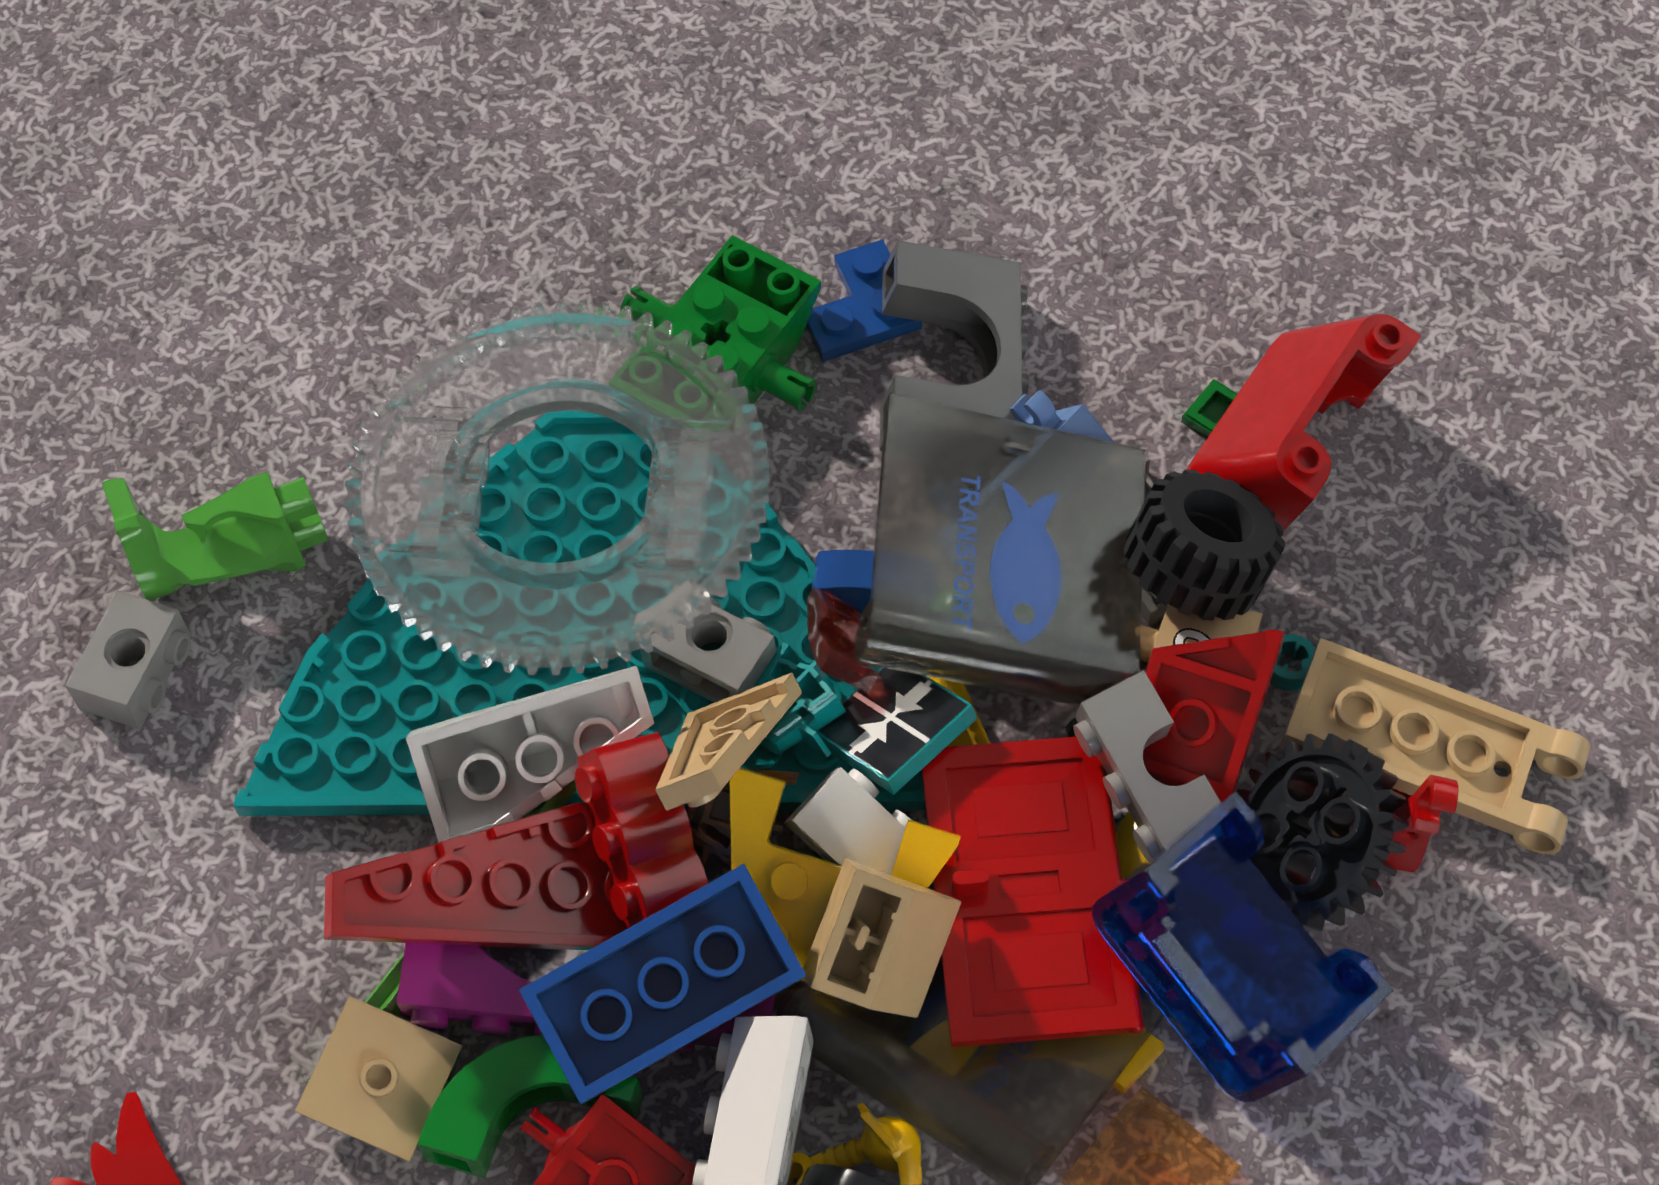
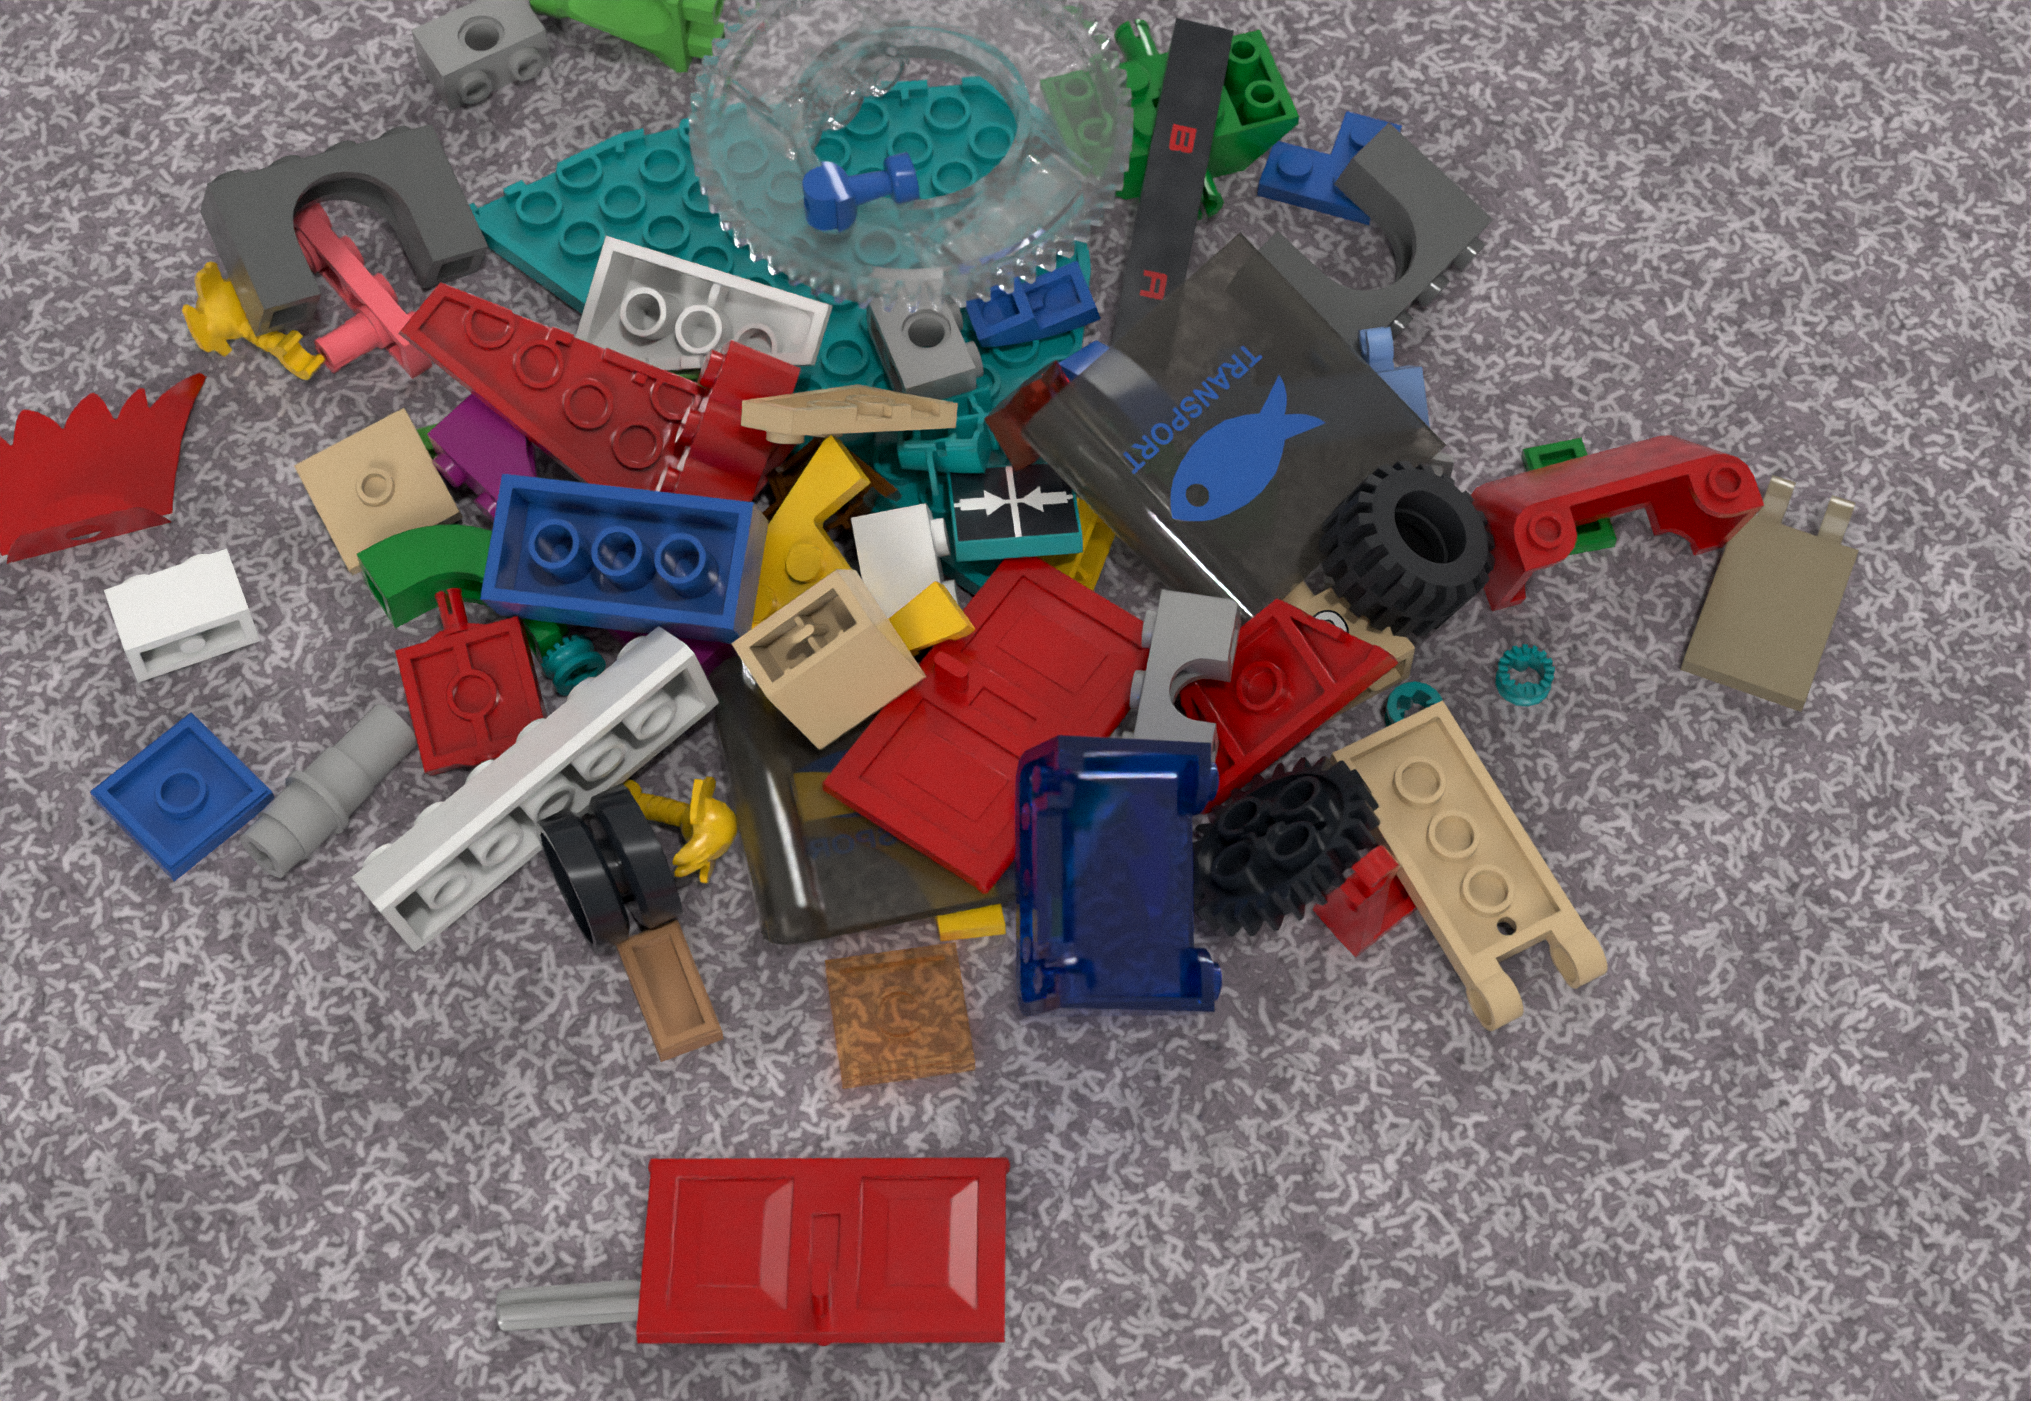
camera: 35 degrees right, 0 degrees up
(114, 1022) = (221, 318): none -> yellow piece
(170, 811) = (396, 175): none -> dark grey arch
(175, 918) = (369, 297): none -> coral plate
(567, 578) = (833, 196): none -> blue leg
(661, 1099) = (572, 663): none -> teal bush
(771, 556) = (1035, 310): none -> blue slope
(783, 401) = (1174, 170): none -> black tile
(1339, 562) = (1520, 659): none -> teal bush
(1449, 408) = (1773, 602): none -> dark tan tile

